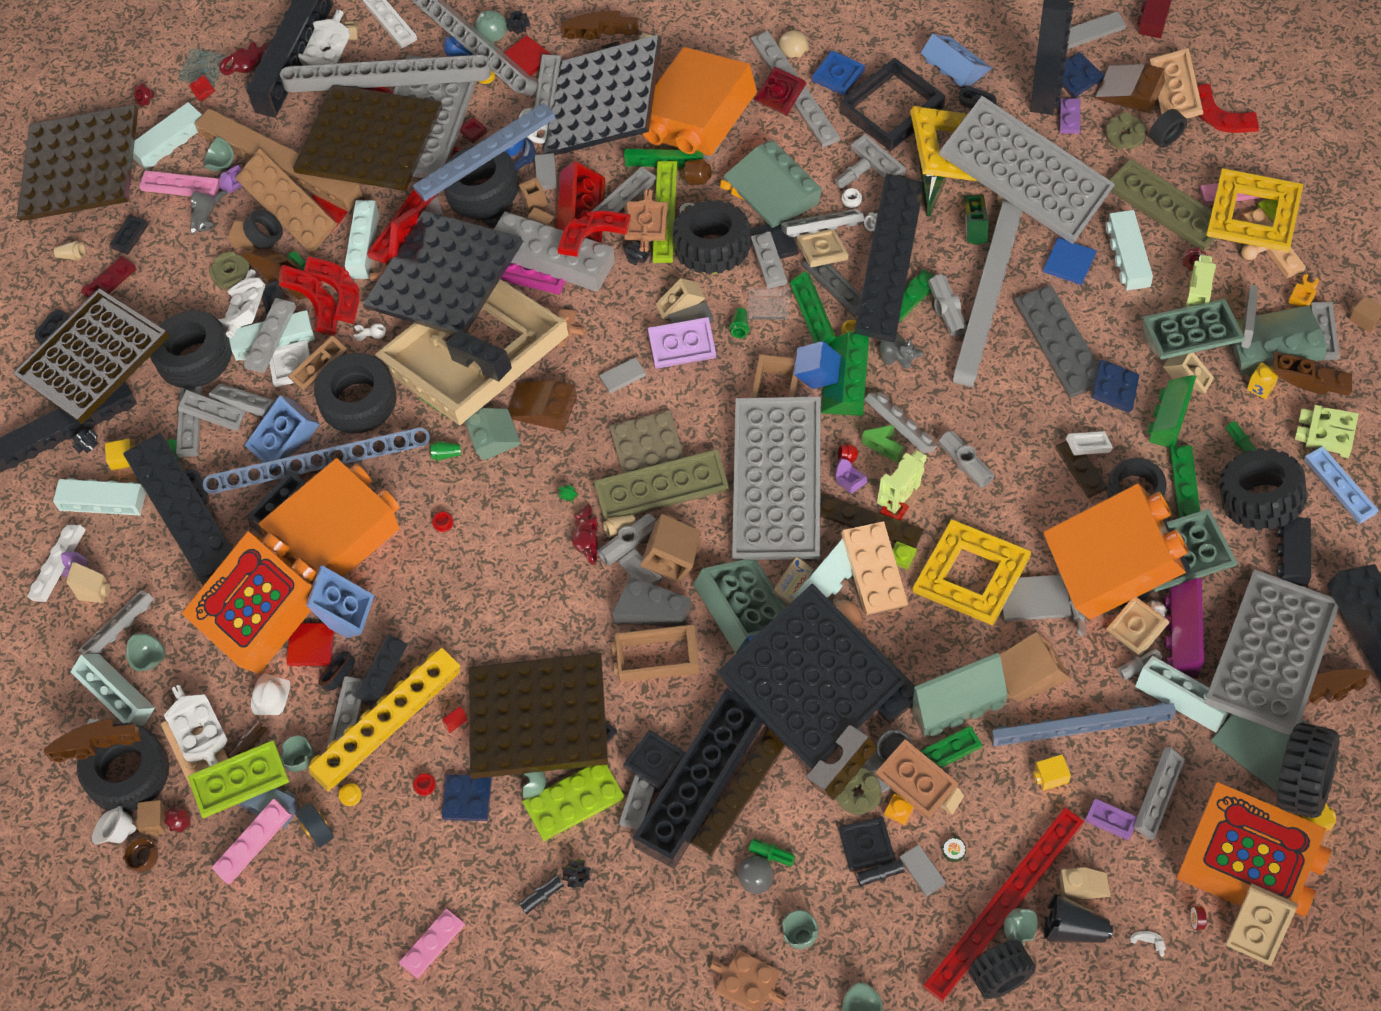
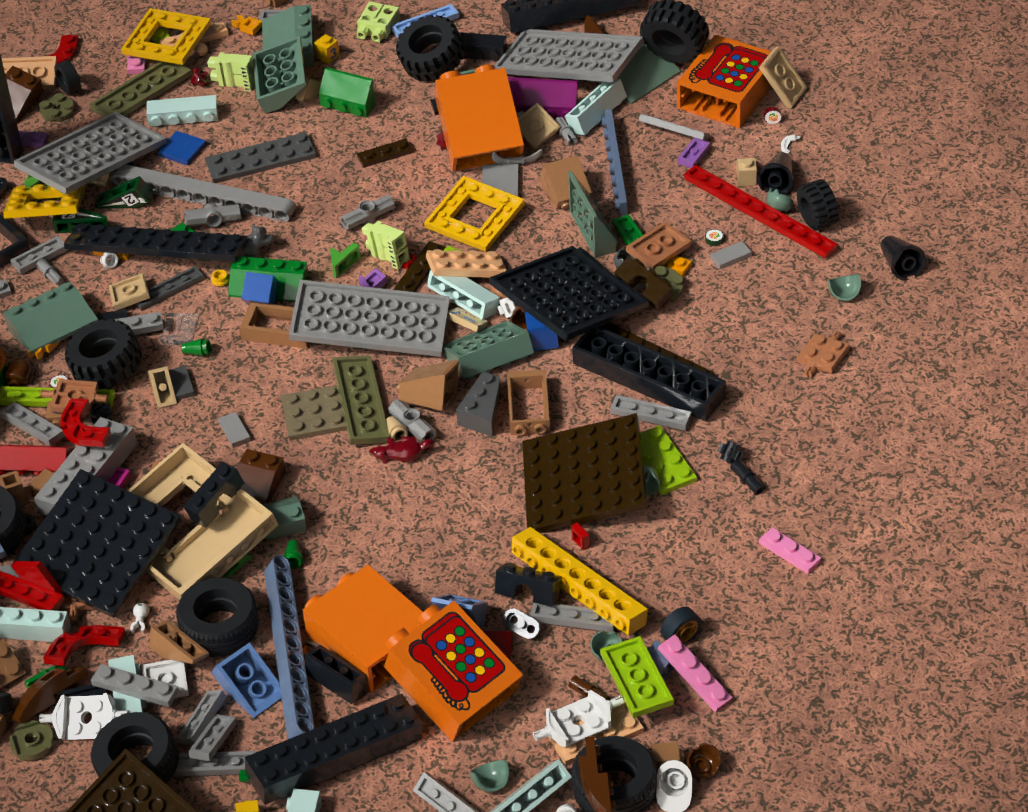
camera: 90 degrees left, 15 degrees down
(177, 818) = (666, 735): dark red piece -> none
(269, 695) = (540, 679): white piece -> none
(311, 287) = (77, 660): red plate -> none
(350, 794) = (653, 611): yellow plate -> none
(424, 784) = (640, 559): red plate -> none
(442, 521) = (371, 554): red plate -> none
(466, 798) = (654, 530): dark blue plate -> none
(567, 493) = (356, 464): green plate -> none
(631, 565) = (441, 419): light grey tile -> none
(654, 760) = (630, 399): black tile -> none
(682, 343) = (210, 384): lavender plate -> none
(755, 874) = (731, 347): dark grey hair -> none
(771, 852) = (713, 336): green axle -> none
(797, 923) = (782, 318): sand green hair -> none
(812, 308) = (195, 299): green plate -> none
(827, 221) = (102, 289): light grey plate -> none
(847, 452) = (348, 279): red plate -> none
(851, 193) = (77, 273): white plate -> none
(866, 844) = (707, 285): black tile -> none
(880, 872) = (733, 276): black pin -> none
(905, 426) = (316, 251): light grey plate -> none
(1051, 772) = (654, 179): yellow brick -> none
(1089, 443) = (365, 143): white tile -> none
(1115, 386) = (314, 126): dark blue plate -> none
(1136, 467) = (411, 130): black tyre -> none
(1184, 480) = (404, 99): green plate -> none
(1240, 438) = (376, 66): green axle -> none
(1249, 318) = (254, 45): light grey tile -> none
(1307, 376) = (330, 21): reddish brown slope -> none

